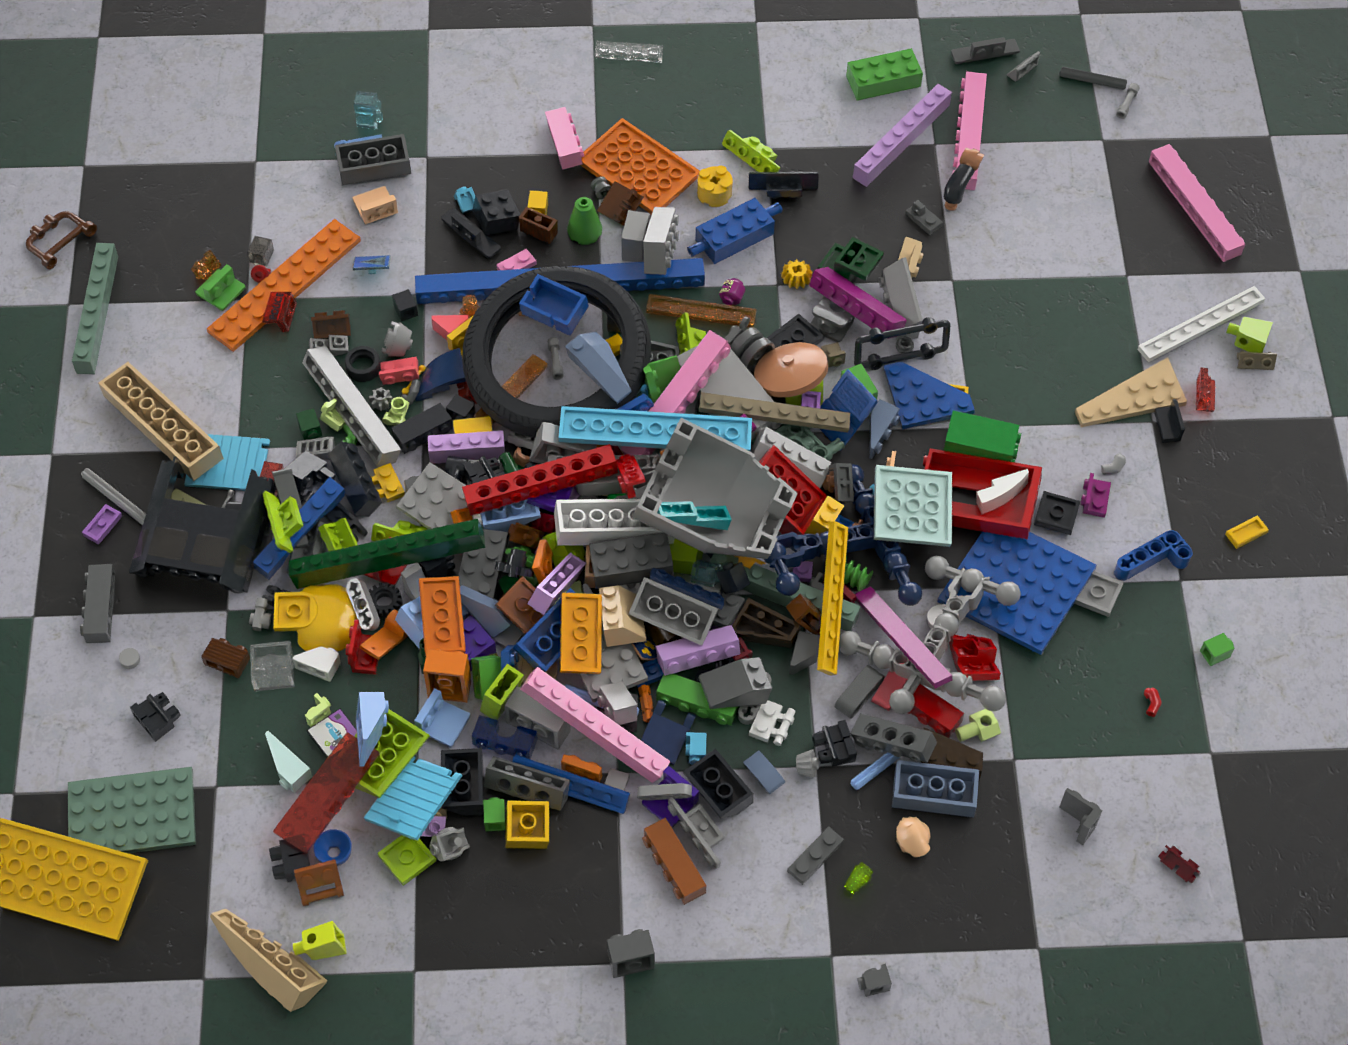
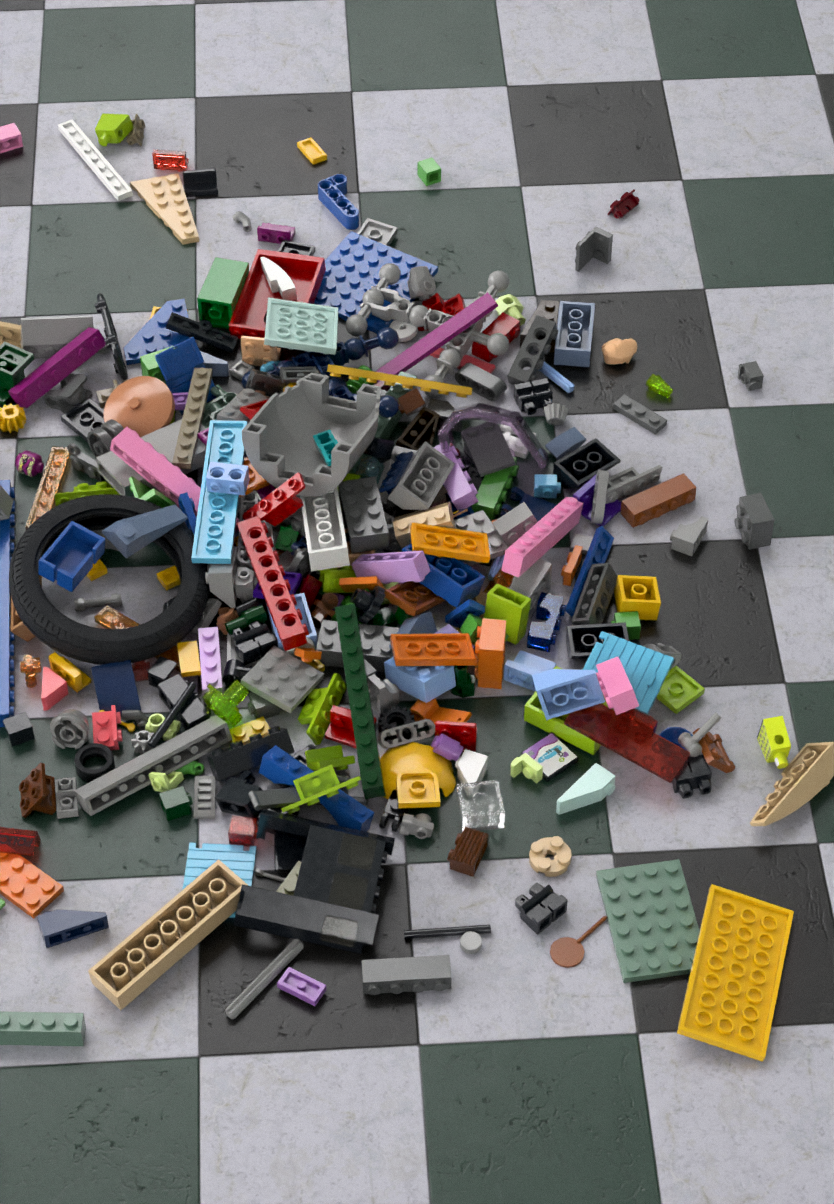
camera: 90 degrees left, 10 degrees down
(110, 740) = (569, 951): none -> piece
(144, 640) = (447, 931): none -> black bar
(190, 349) = (66, 925): none -> slope
(215, 718) = (553, 846): none -> tan plate
(322, 855) = (691, 743): none -> light grey piece
(338, 636) = (447, 747): none -> medium lavender brick
(372, 774) = (616, 686): none -> bright pink brick
(401, 414) = (172, 714): none -> black bar
(409, 454) = (225, 704): none -> clear neon green piece
(616, 888) = (688, 537): none -> light grey arch
(659, 429) = (227, 478): none -> light blue brick
(751, 693) = (494, 415): none -> clear purple windscreen
(841, 506) = (292, 374): none -> dark grey slope
(869, 468) = (240, 369): none -> light grey tile
(920, 426) = (202, 332): none -> black hinge
(1004, 630) = (421, 283): none -> light grey hand
(1153, 695) = (472, 210): red arm -> none

